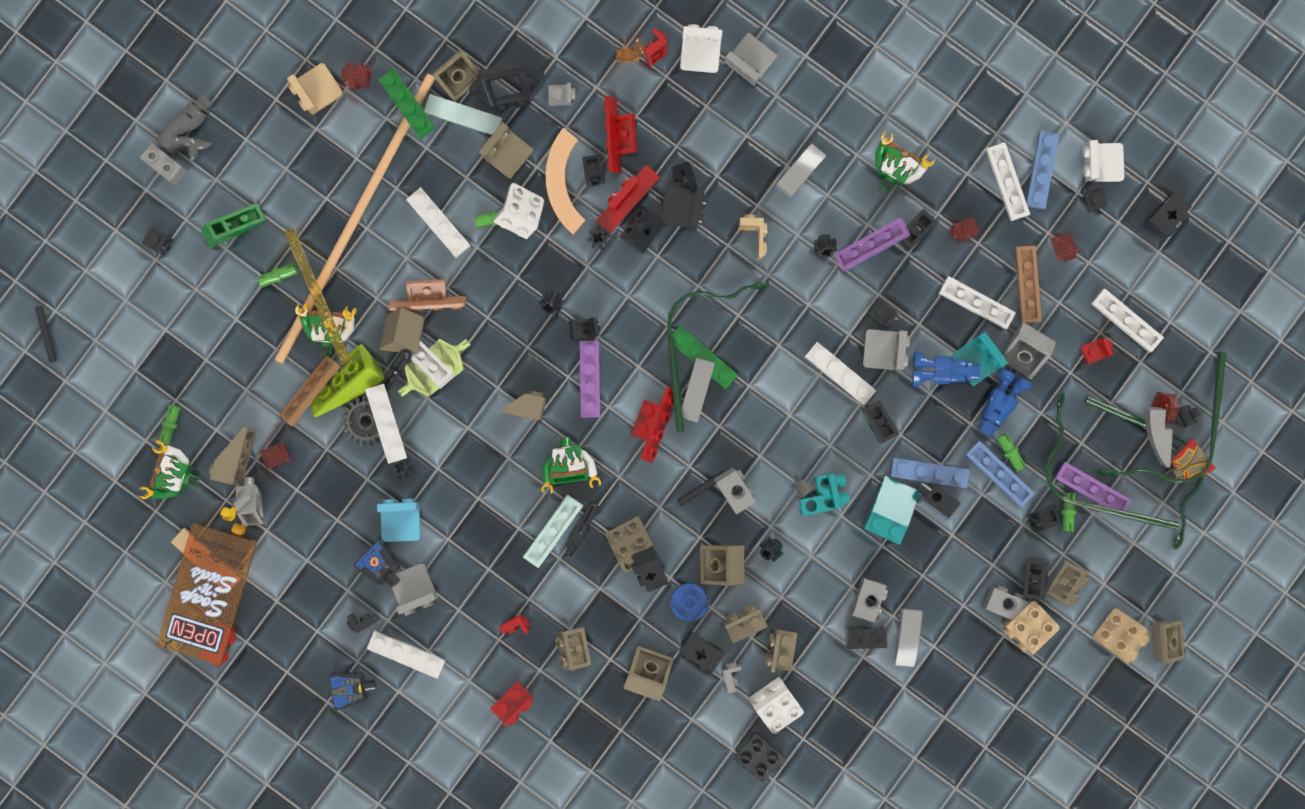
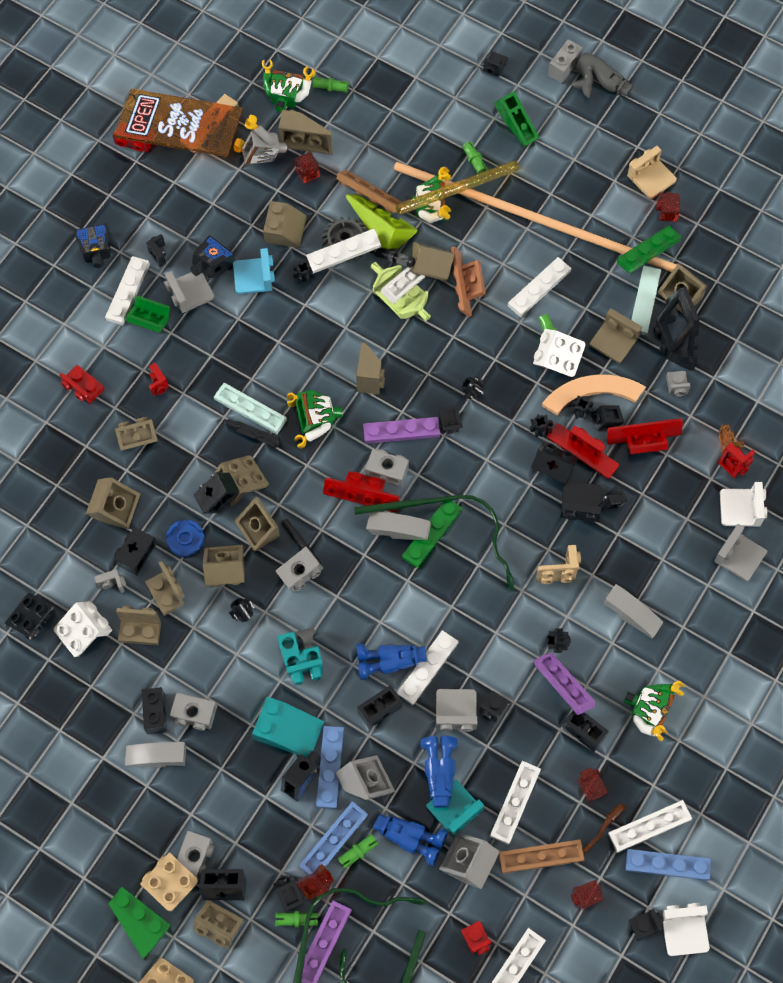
camera: 90 degrees right, 20 degrees down
(344, 484) = (284, 225): none -> dark tan slope
(439, 632) = (149, 314): none -> green bracket
(586, 197) = (581, 407): none -> black gear
(634, 384) = (393, 475): none -> light grey brick
(683, 530) = (257, 525): none -> dark tan slope
(829, 407) = (391, 658): none -> blue piece
(946, 440) = (365, 778): none -> light grey slope
(1019, 234) = (610, 818): none -> reddish brown piece
(1041, 492) = (316, 883): none -> clear red bracket
(1059, 656) = (139, 921): none -> green wing

